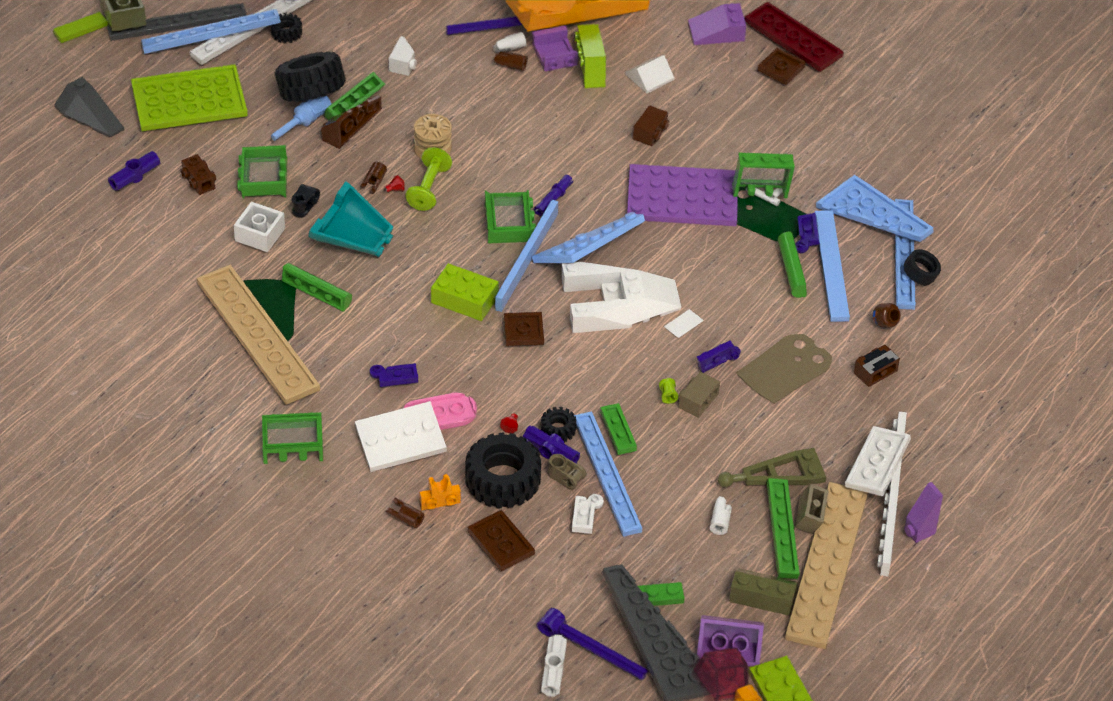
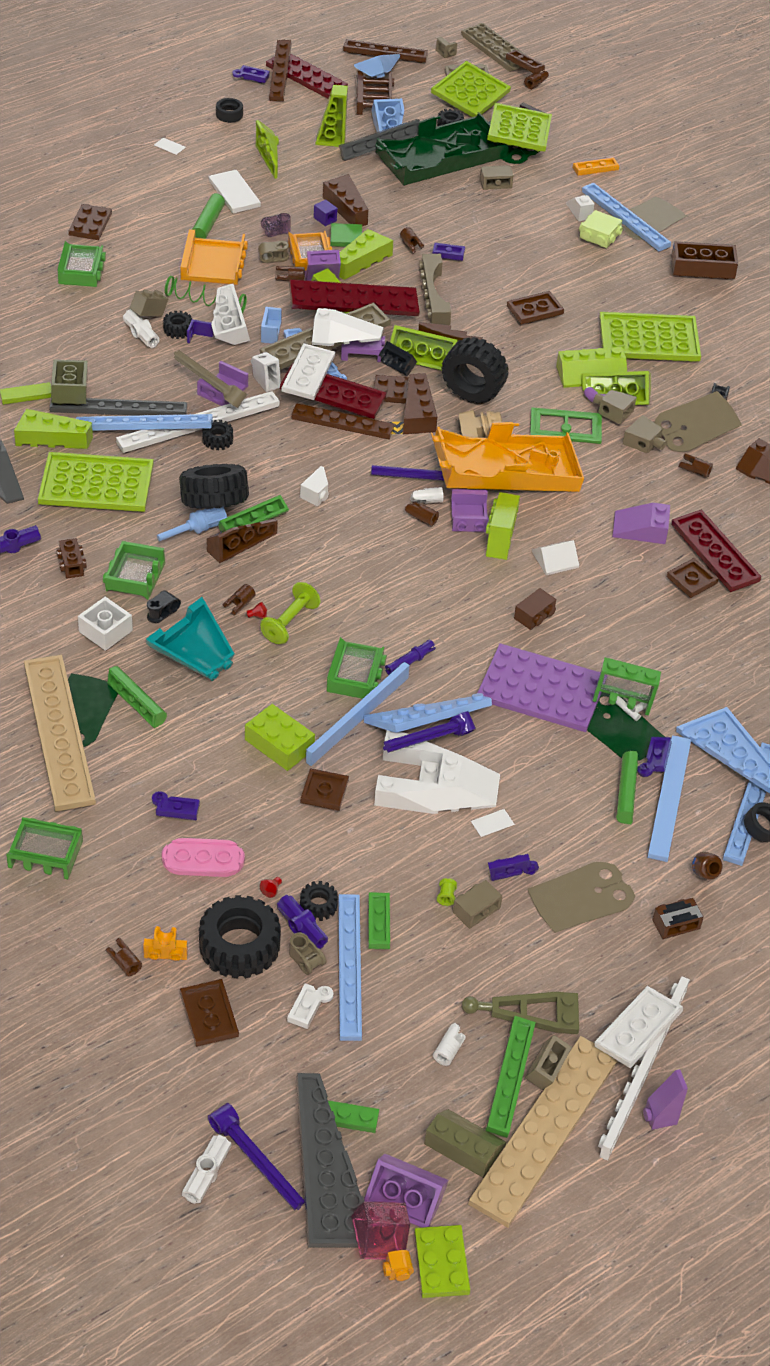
camera: 15 degrees right, 0 degrees up
(125, 57) = (52, 430): none -> lime wedge
(400, 436) = (153, 873): white plate -> none
(432, 131) = (313, 568): tan wheel -> none
(622, 245) = (458, 725): none -> dark purple piece

